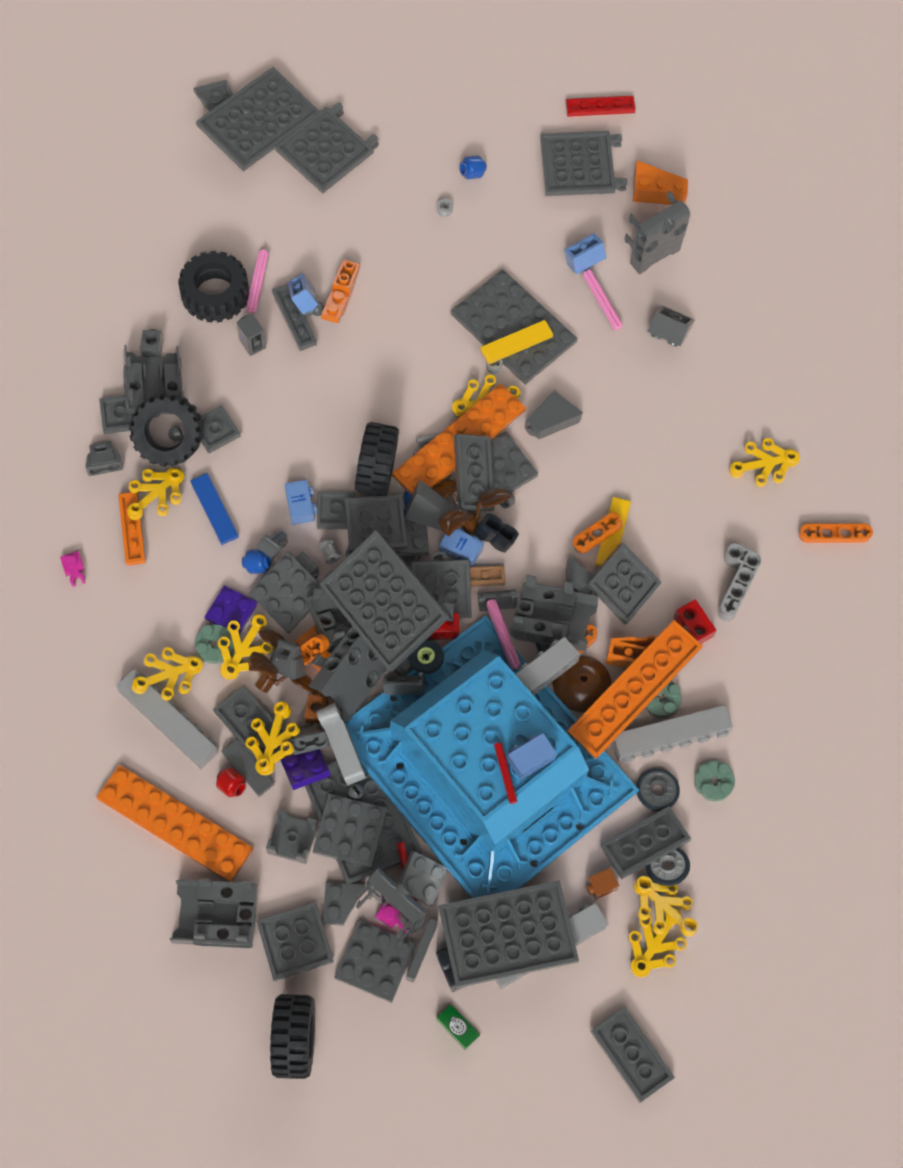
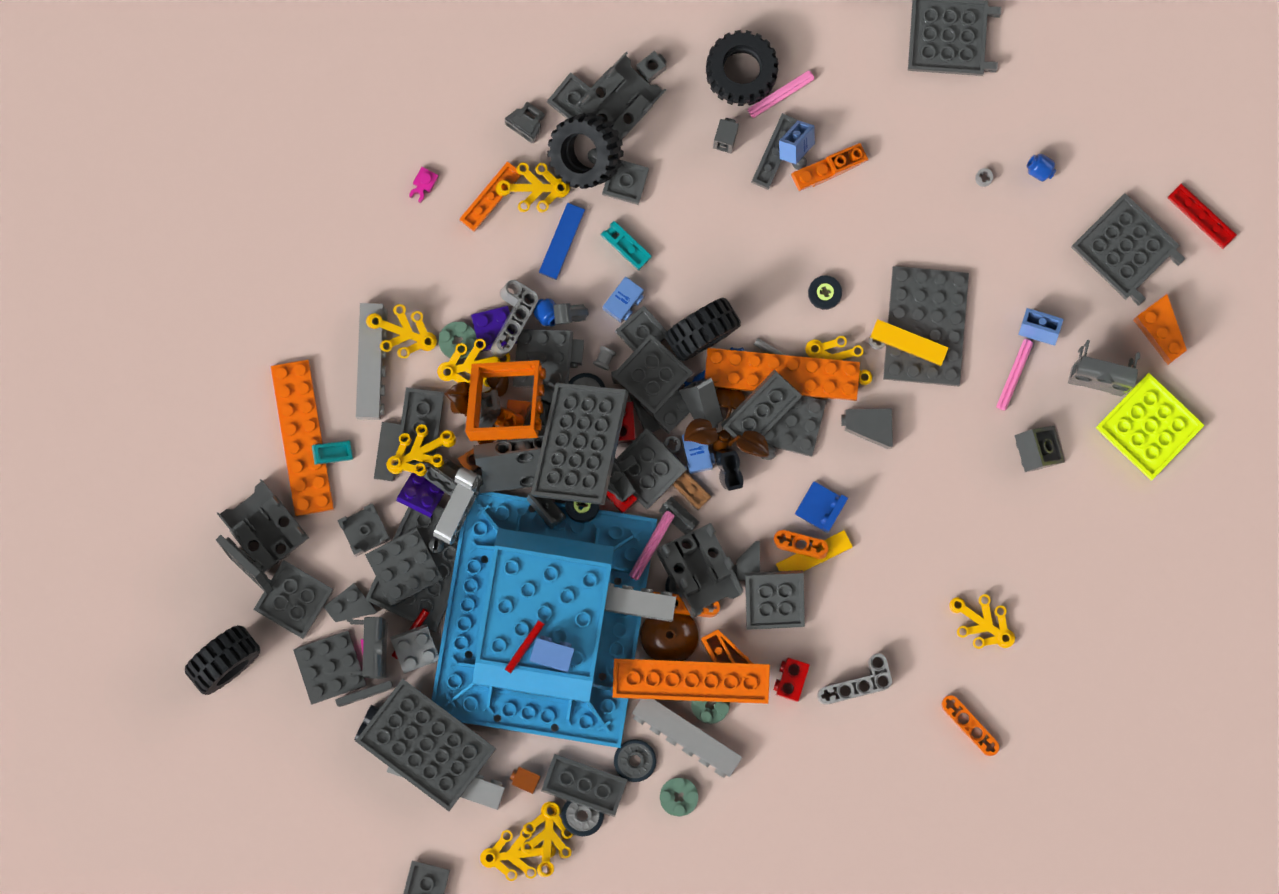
camera: 50 degrees right, 15 degrees up
(208, 808) = (332, 452): none -> teal tile
(231, 782) = (364, 450): red head -> none
(232, 948) = (244, 562): none -> dark grey plate
(233, 570) = (512, 321): none -> light grey beam
(261, 468) = (626, 246): none -> teal plate
(276, 614) = (504, 369): none -> orange window
(429, 376) = (821, 301): none -> black bush
(457, 1027) = (334, 765): green slope -> none
(583, 497) = (821, 507): none -> blue bracket
(720, 248) = (1149, 426): none -> neon yellow plate

